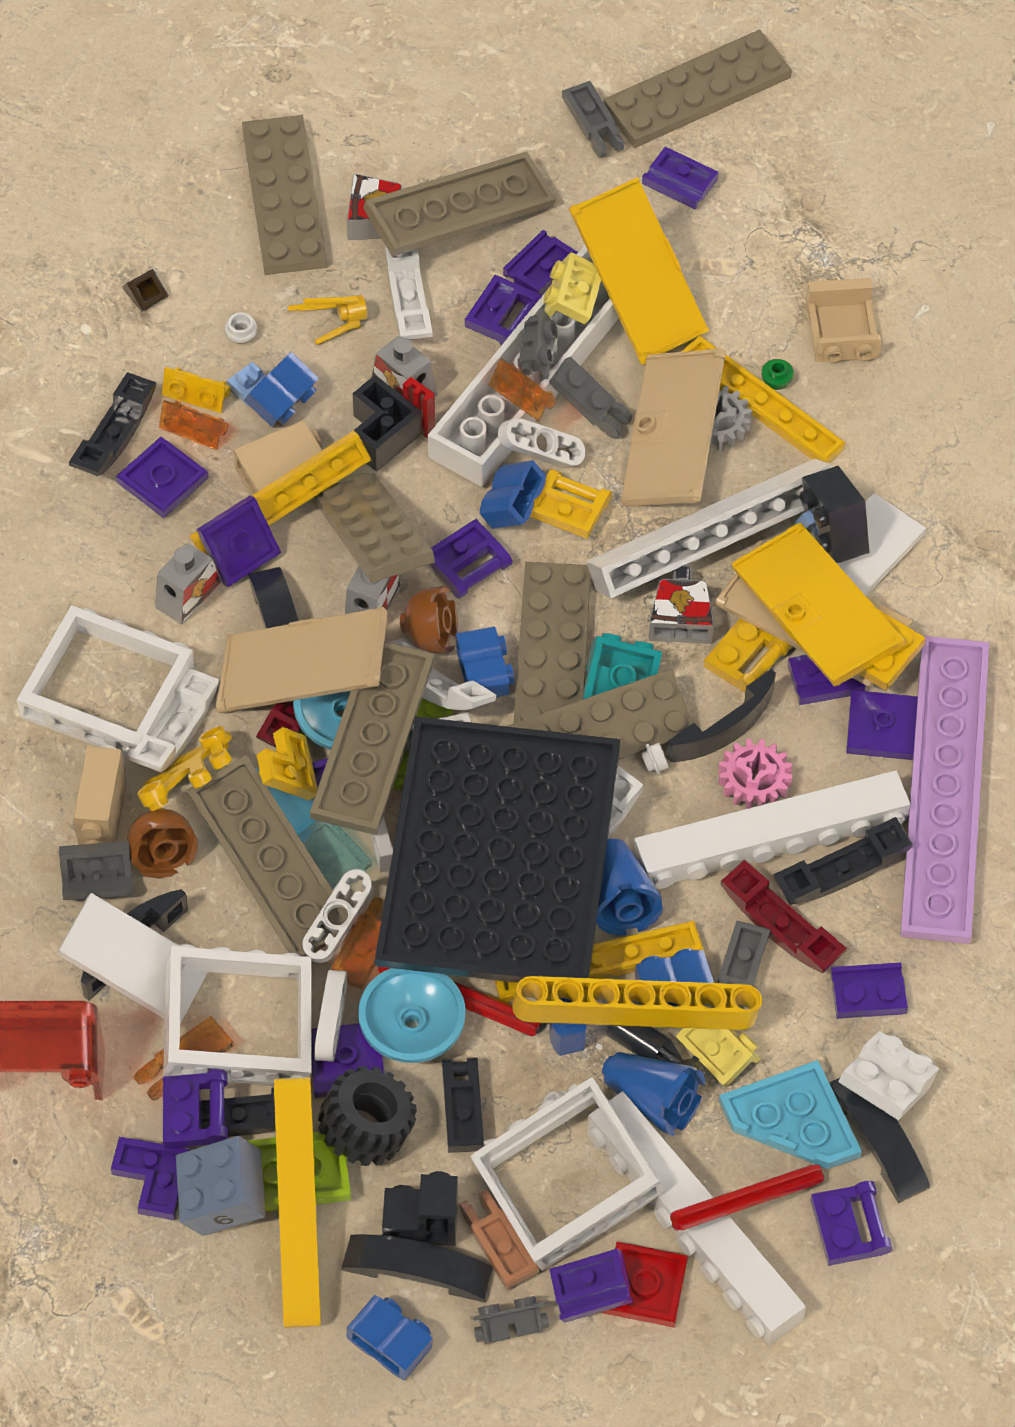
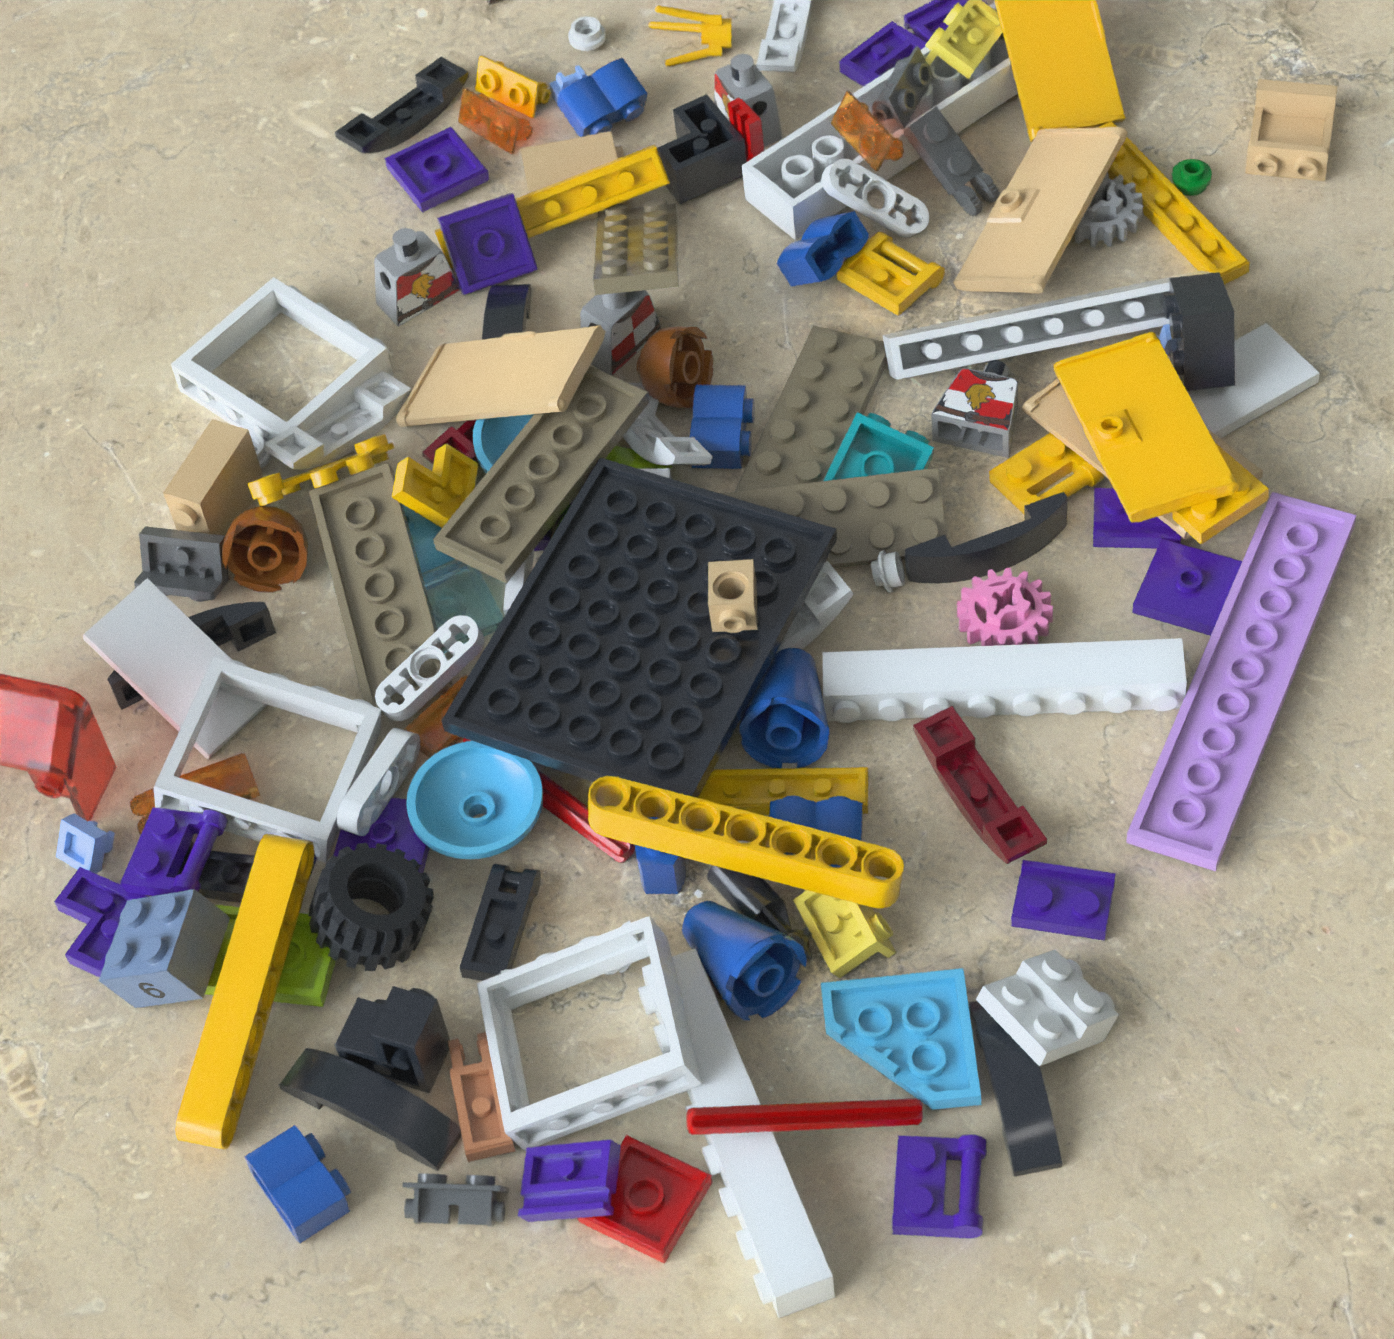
camera: 25 degrees right, 5 degrees down
(111, 1118) = (83, 843): none -> light blue tile
(463, 549) = (744, 301): dark purple plate -> none
(562, 801) = (732, 595): none -> tan brick
(744, 955) = (916, 821): dark grey hinge -> none
(845, 866) = (1081, 744): black slope -> none

